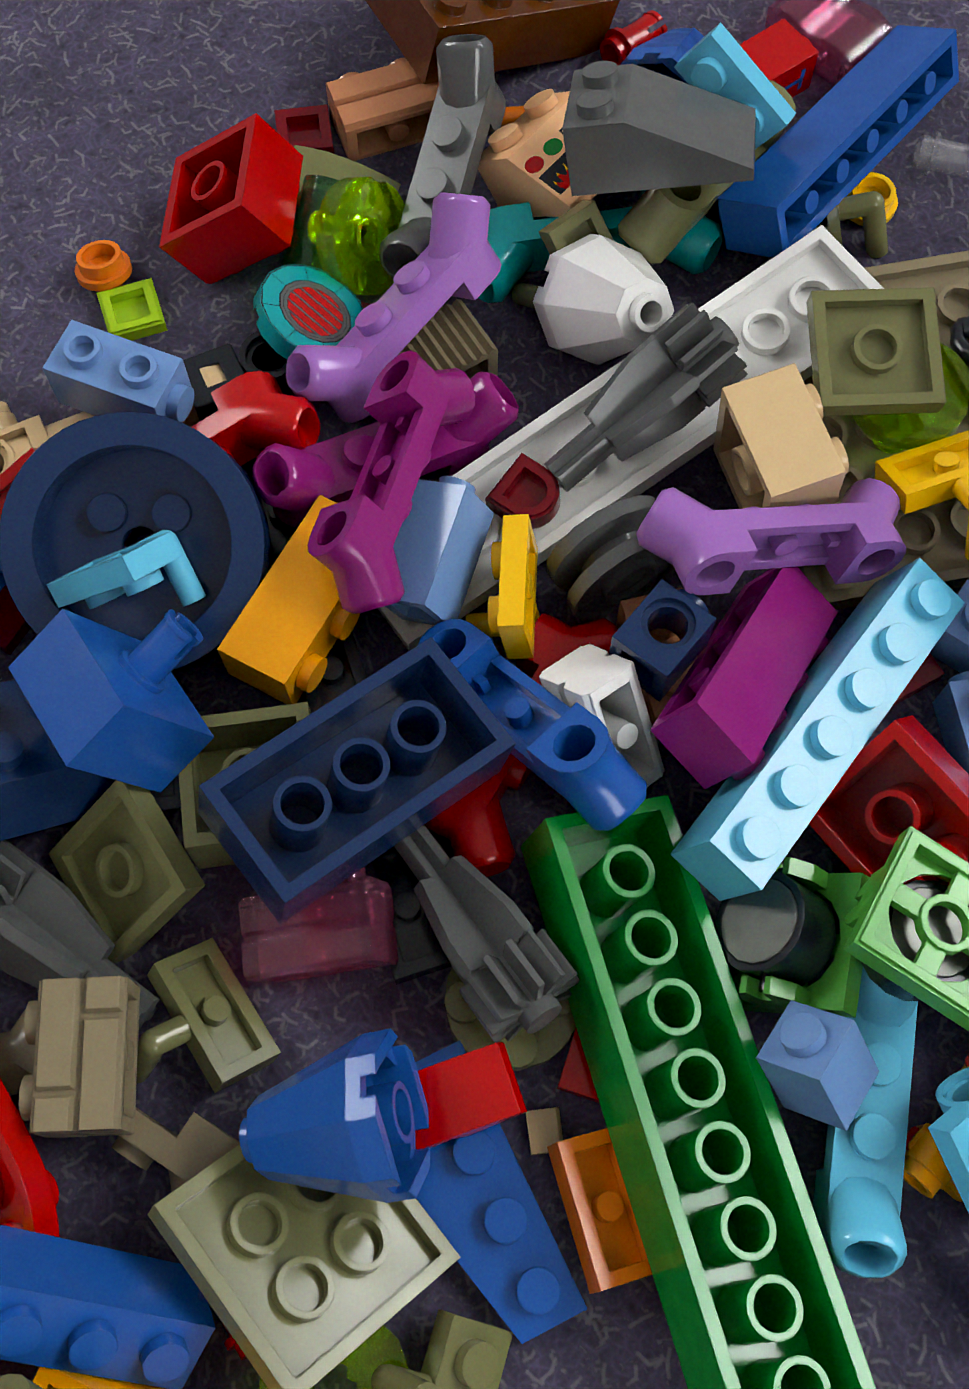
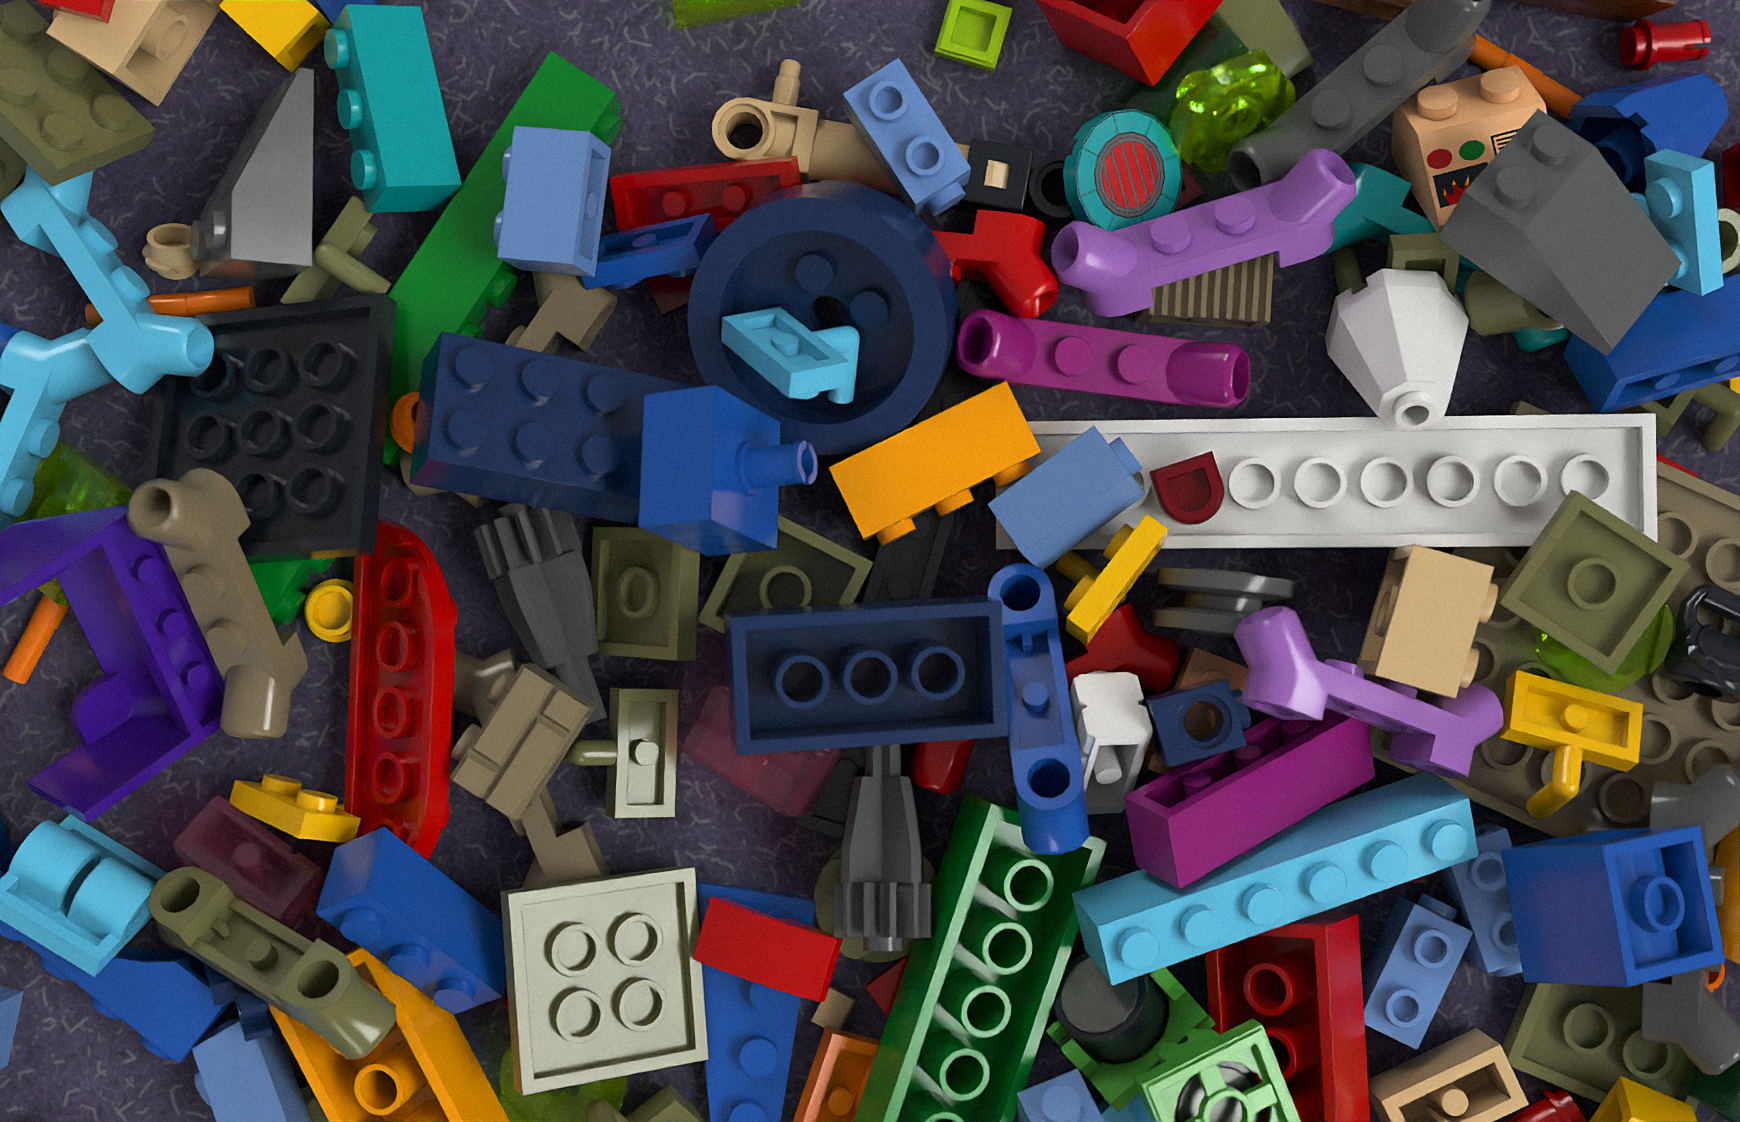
camera: 35 degrees right, 20 degrees up
(344, 1123) = (680, 930): blue cone -> none
(360, 533) = (1007, 462): magenta plate -> none
(654, 392) = (1364, 485): dark grey piece -> none

